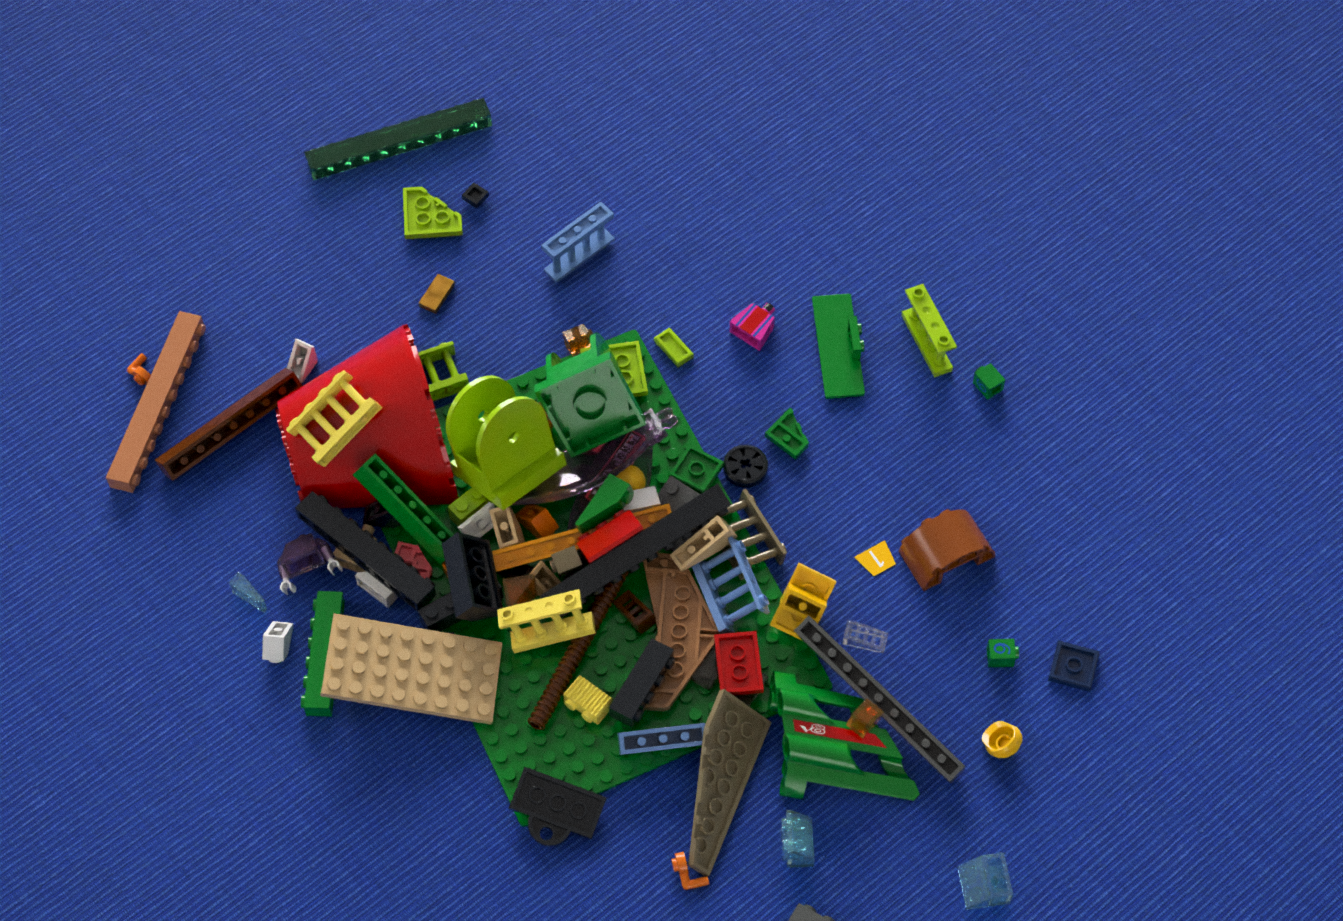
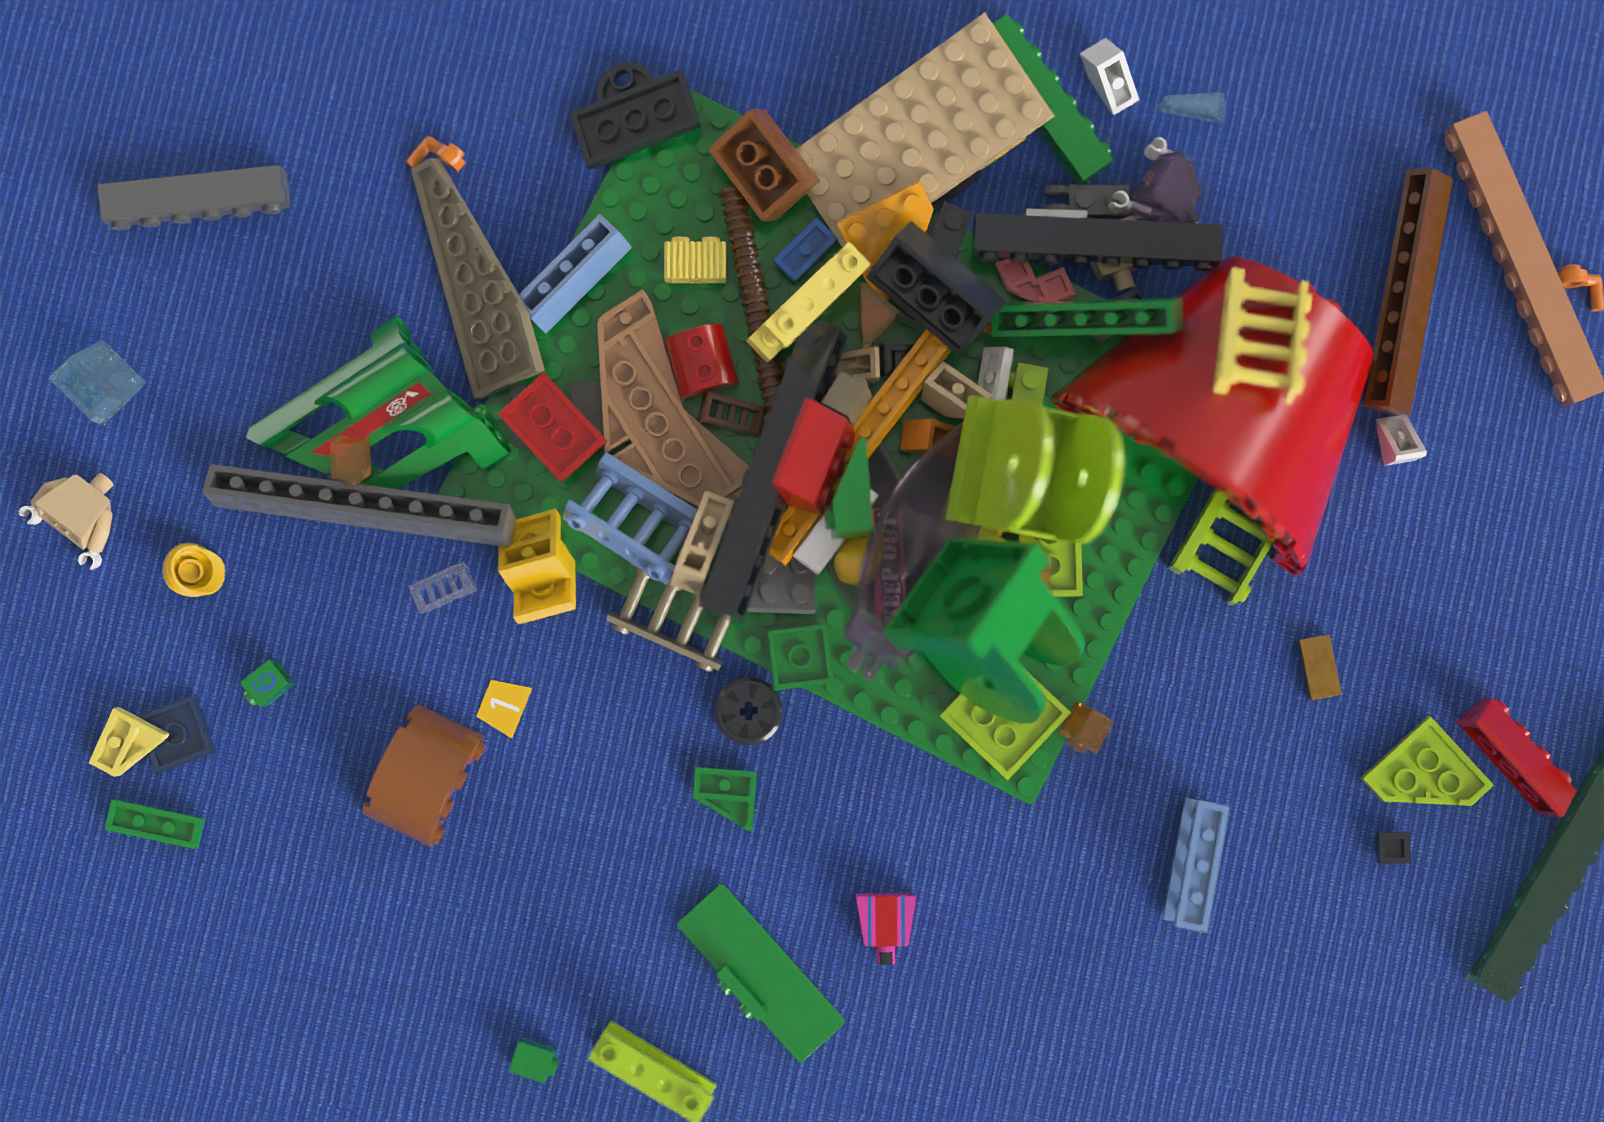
camera: 140 degrees right, 25 degrees up
(351, 588) = (1088, 197): none -> dark grey hinge
(379, 190) = (1517, 757): none -> red slope
(475, 636) = (877, 224): none -> light orange plate
(508, 716) = (763, 165): none -> dark orange brick
(522, 664) = (805, 250): none -> blue plate
(626, 645) = (701, 360): none -> red brick
(642, 682) = (644, 319): black brick -> none
(673, 347) = (964, 815): lime tile -> none
(797, 840) = (339, 278): clear light blue slope -> none
(1049, 818) = (76, 511): none -> tan torso
(1105, 676) = (125, 742): none -> light yellow wing
(1117, 626) = (154, 823): none -> green plate

